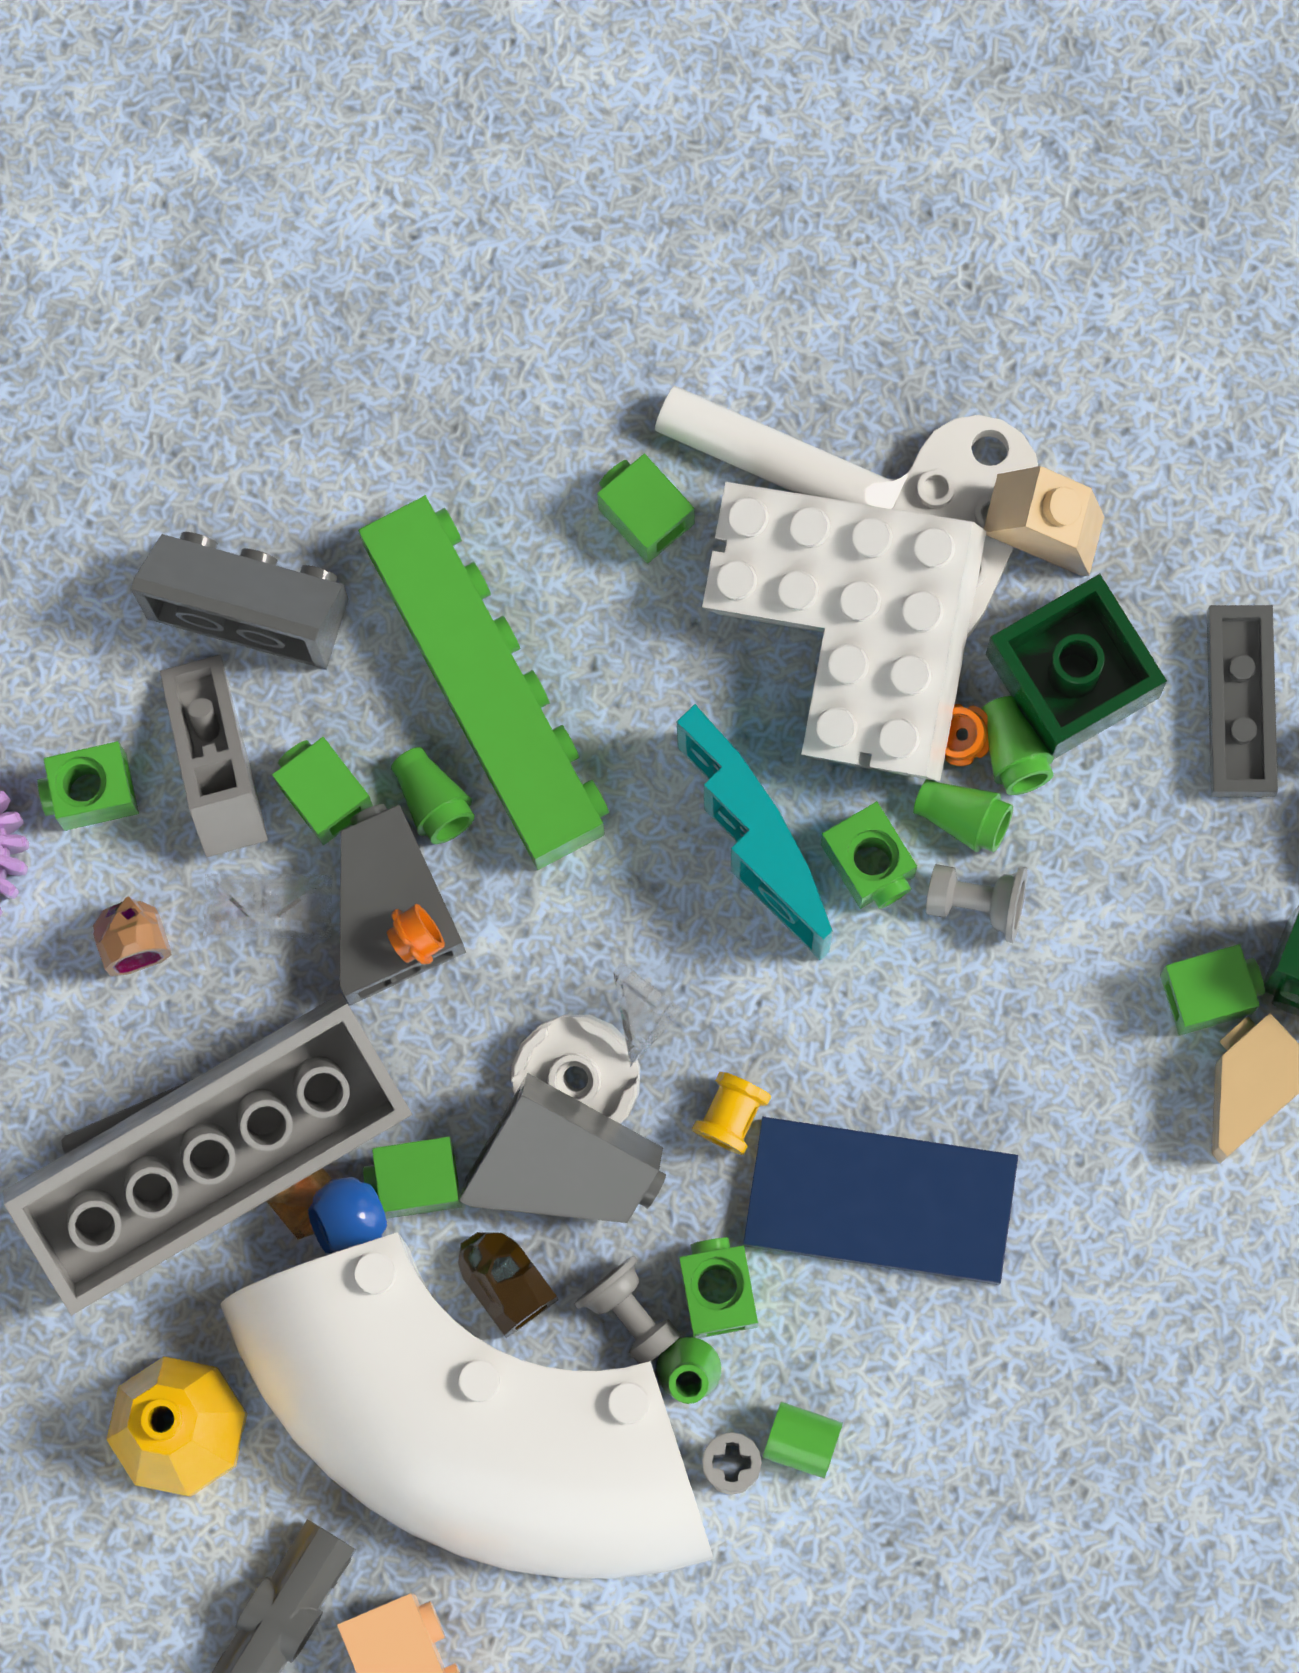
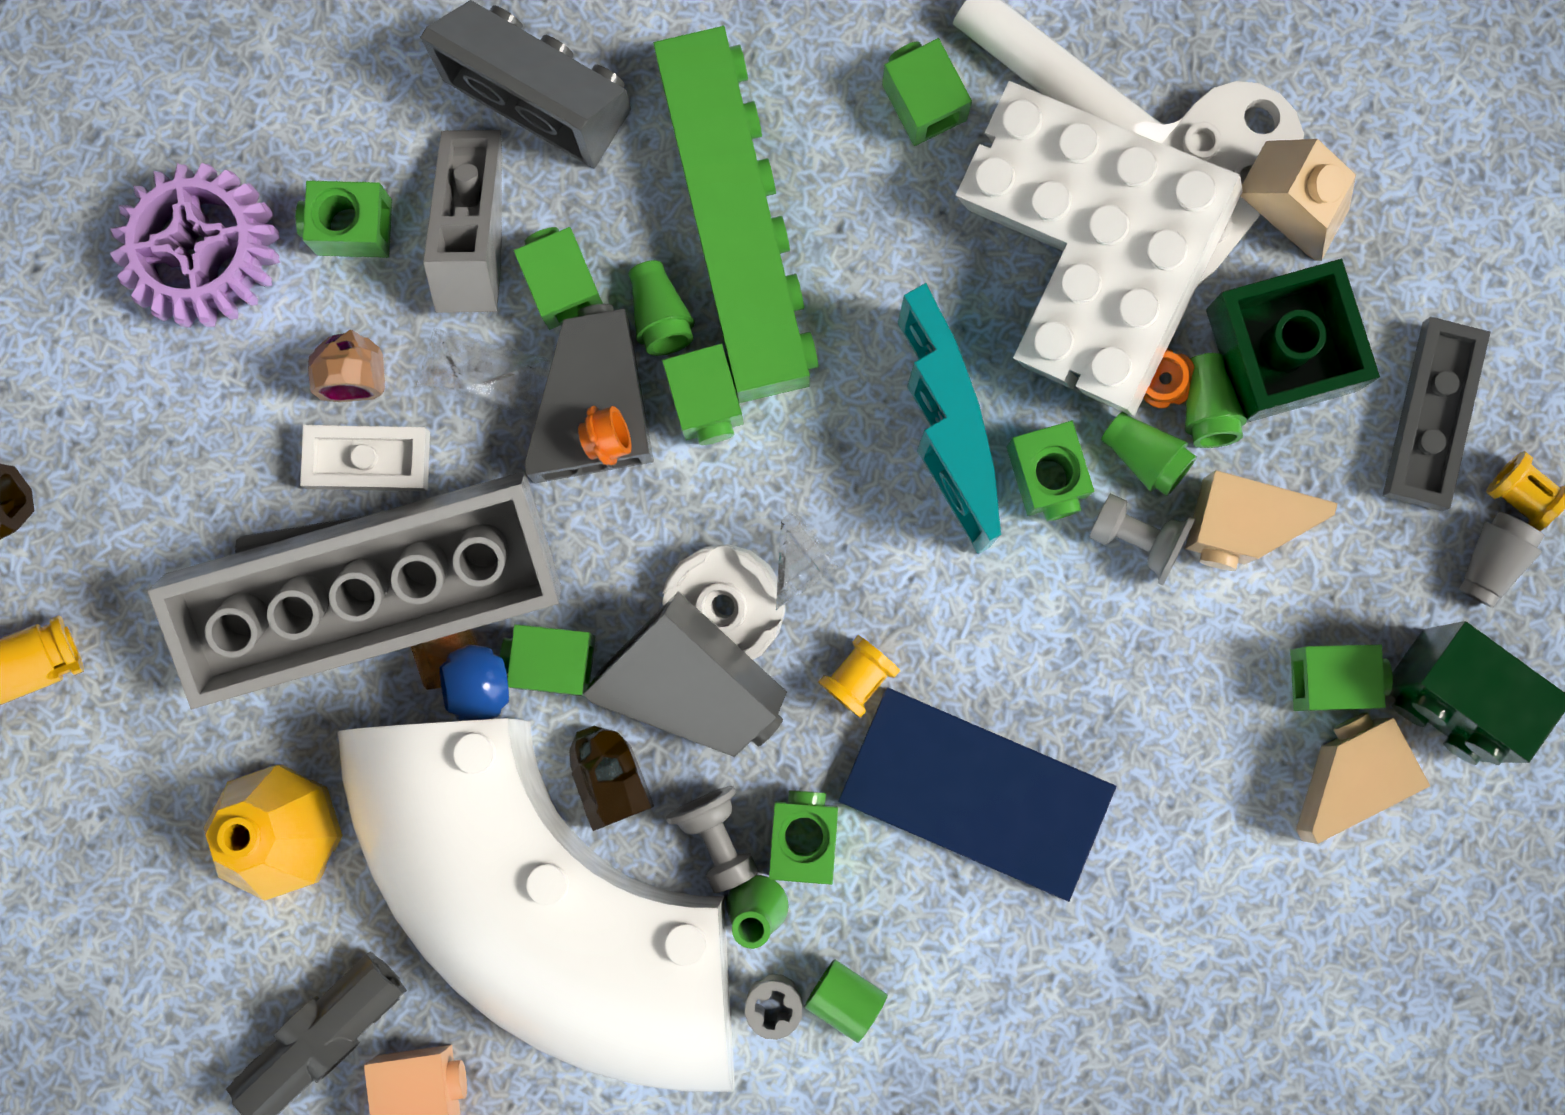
camera: 15 degrees right, 5 degrees up
(172, 1023) = (365, 458): none -> white plate
(501, 870) = (704, 394): none -> bright green brick
(1082, 854) = (1248, 519): none -> tan slope

